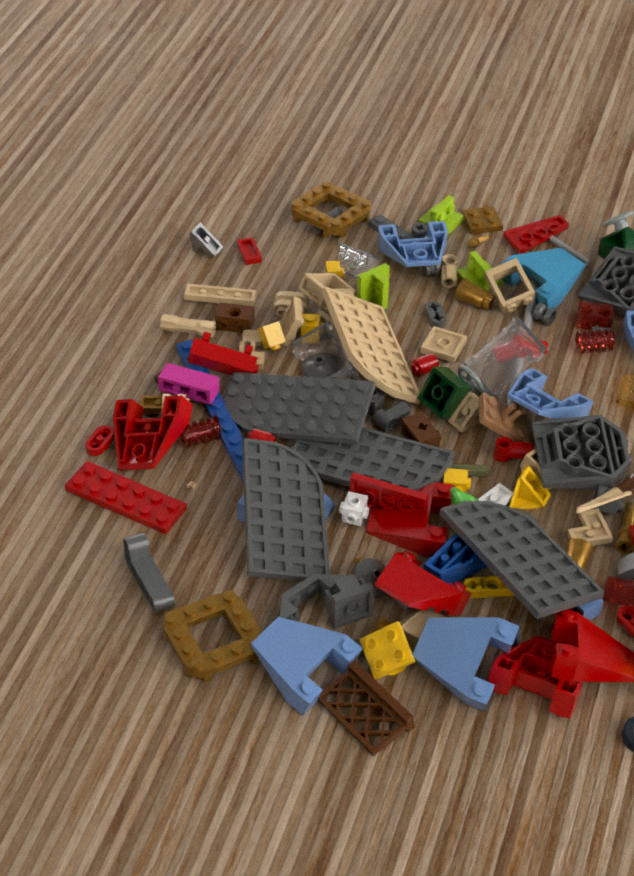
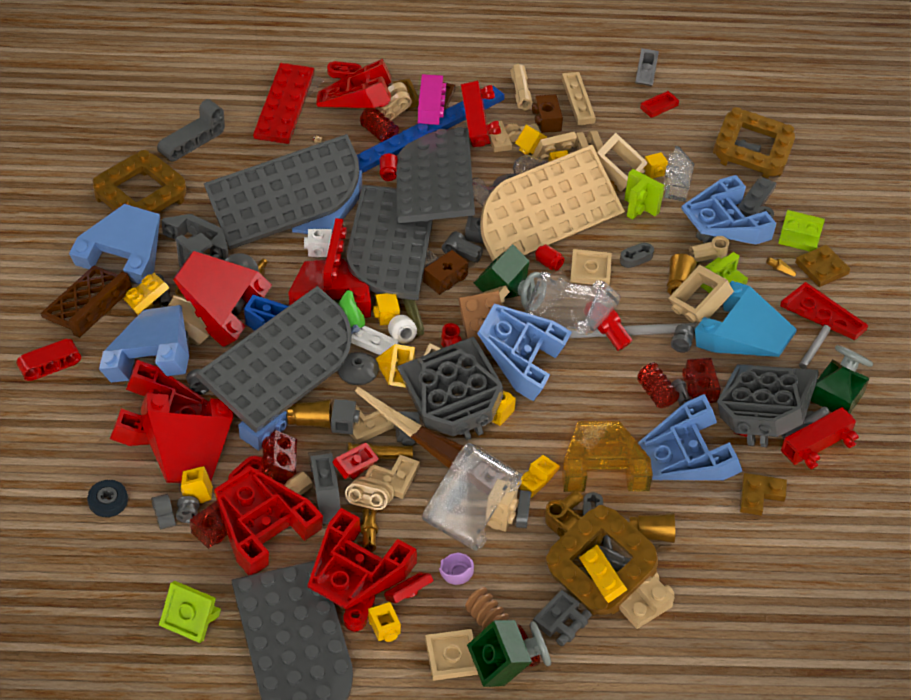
camera: 70 degrees right, 5 degrees up
(447, 753) = (48, 359): none -> red beam
(486, 477) = (402, 329): none -> white head
(593, 532) = (344, 416): none -> dark grey brick

